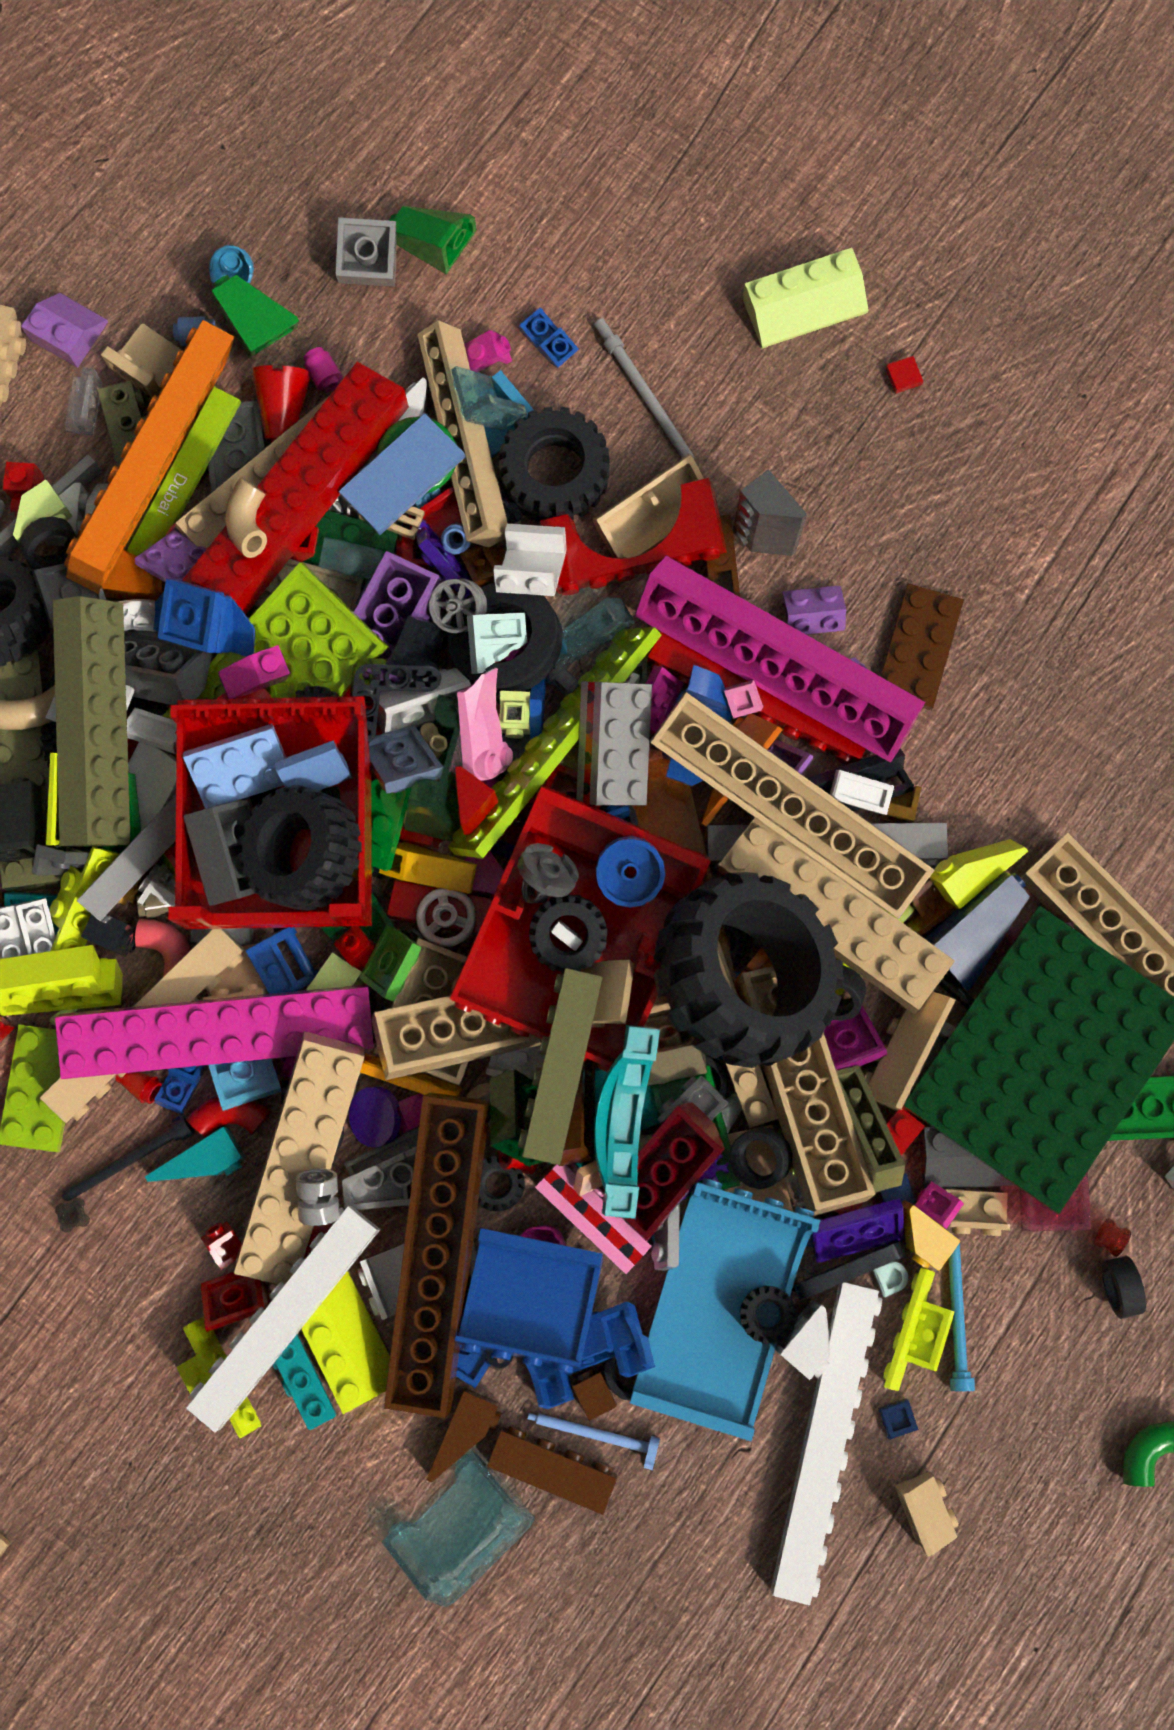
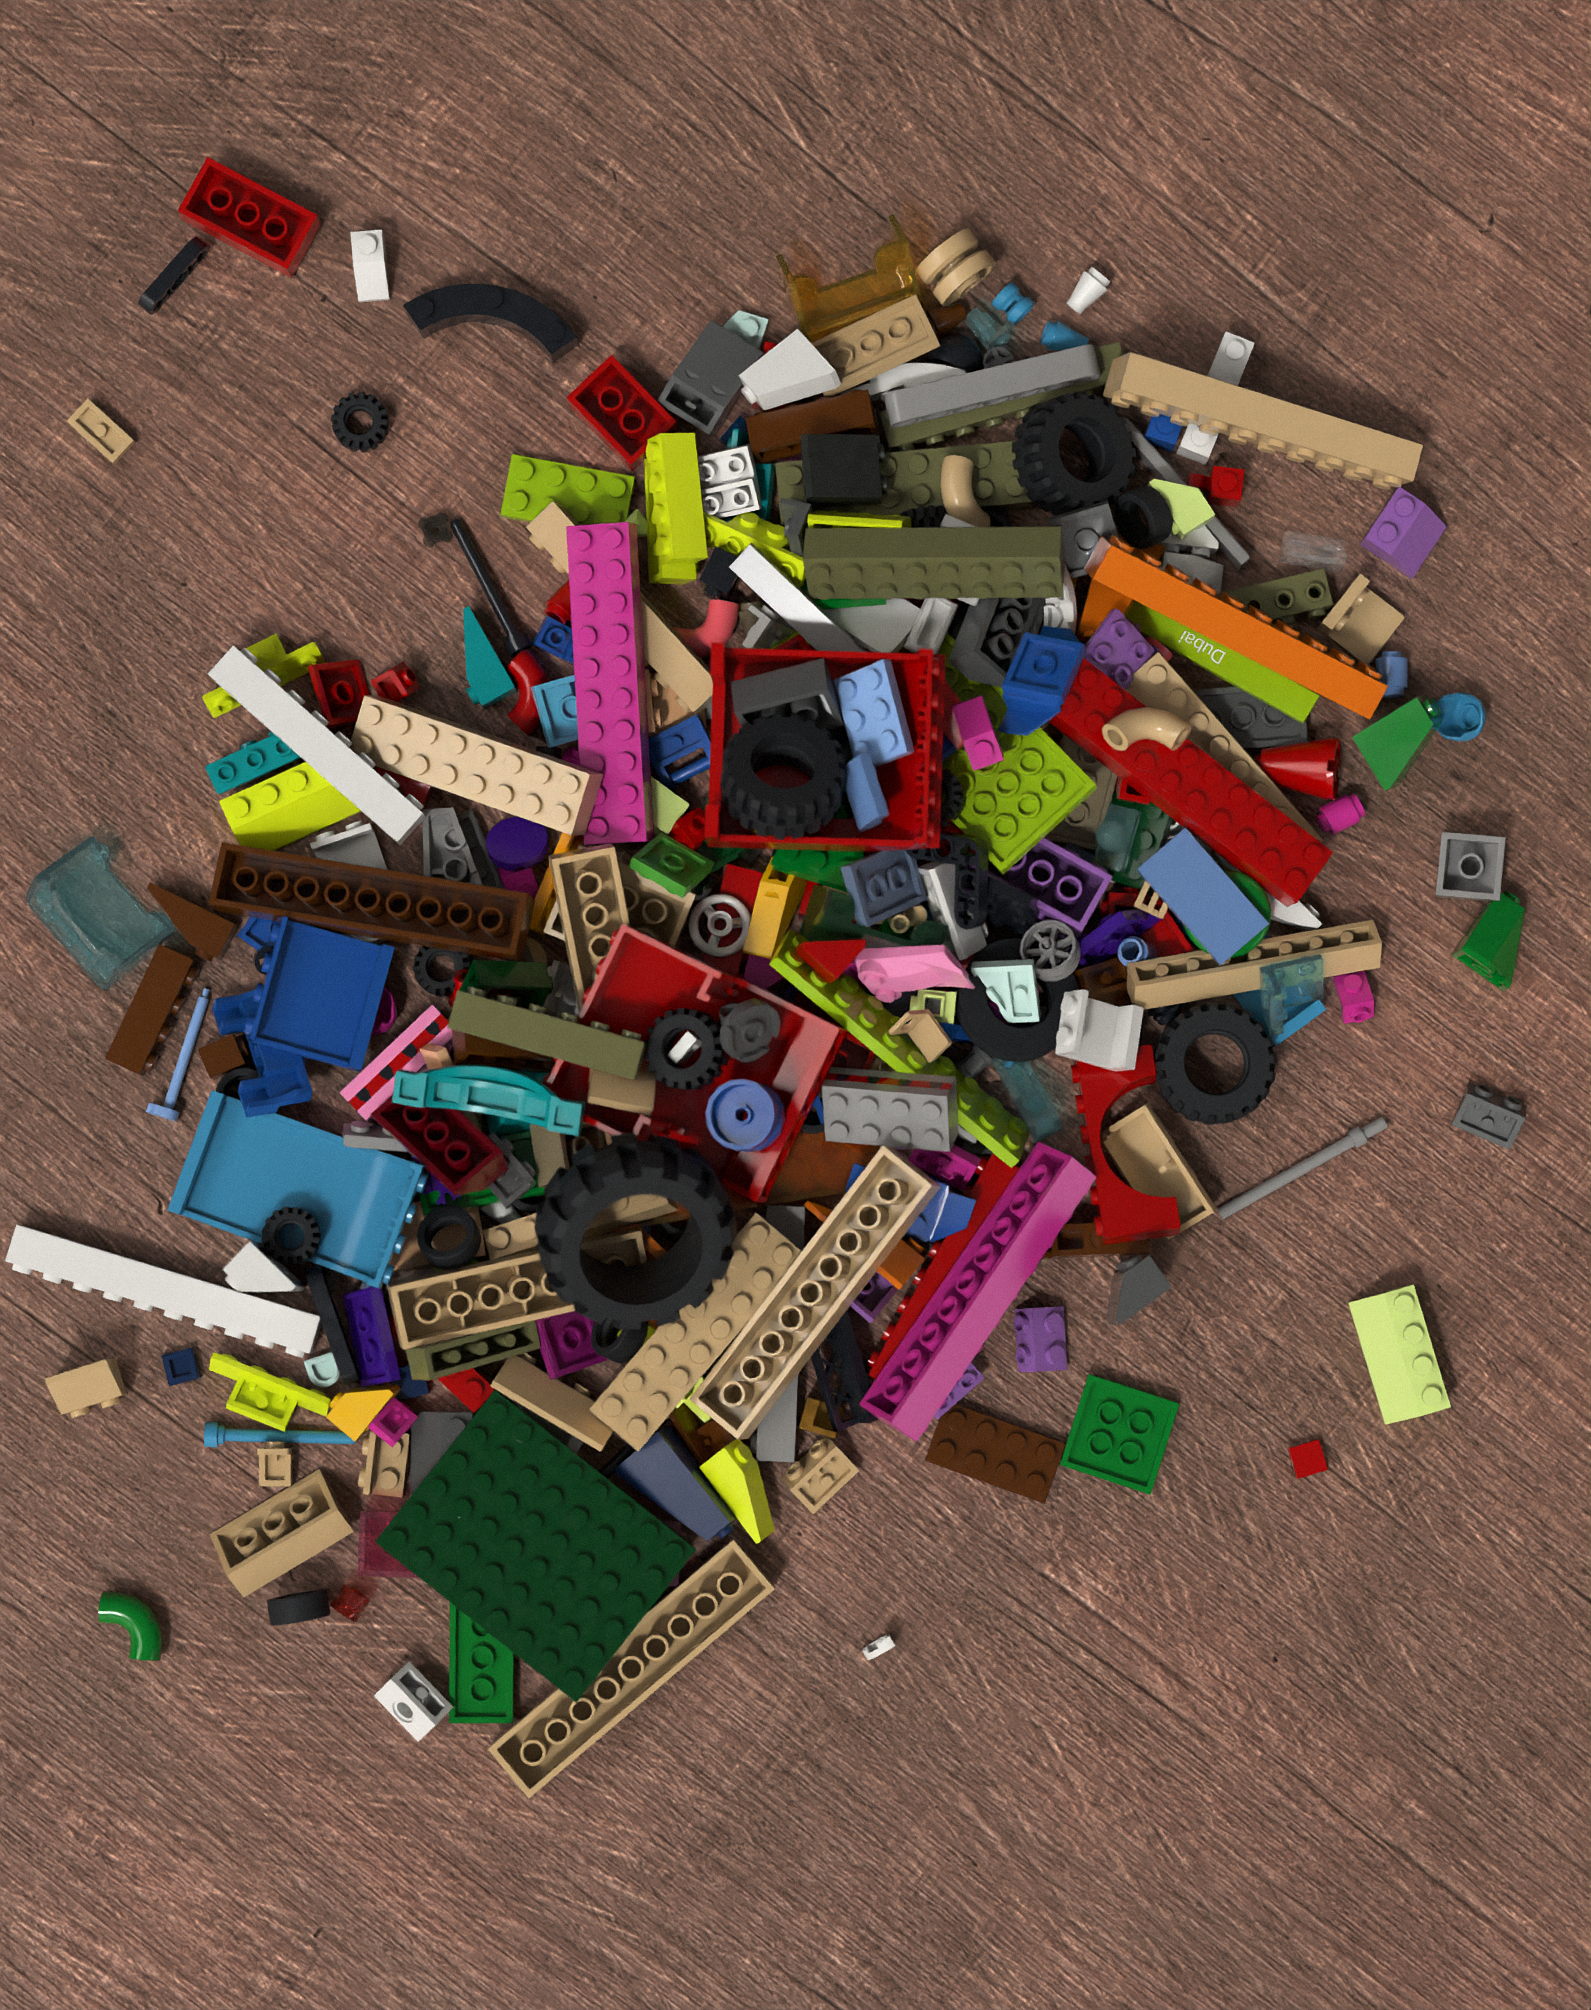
camera: 85 degrees right, 5 degrees up
(317, 1201) = (432, 783): light grey wheel -> none
(541, 716) = (924, 1032): none -> tan bracket
(547, 338) = (1368, 1064): blue slope -> none
(588, 231) = (1490, 1115): none -> dark grey bracket
(743, 699) = (938, 1252): bright pink tile -> none
(861, 792) = (830, 1372): white tile -> none
(895, 536) = (1119, 1434): none -> green plate
(953, 802) = (819, 1474): none -> tan bracket
(987, 1319) = (275, 1464): none -> tan bracket
(1052, 1309) = (281, 1533): none -> tan slope
(1107, 740) = (878, 1647): none -> white tile

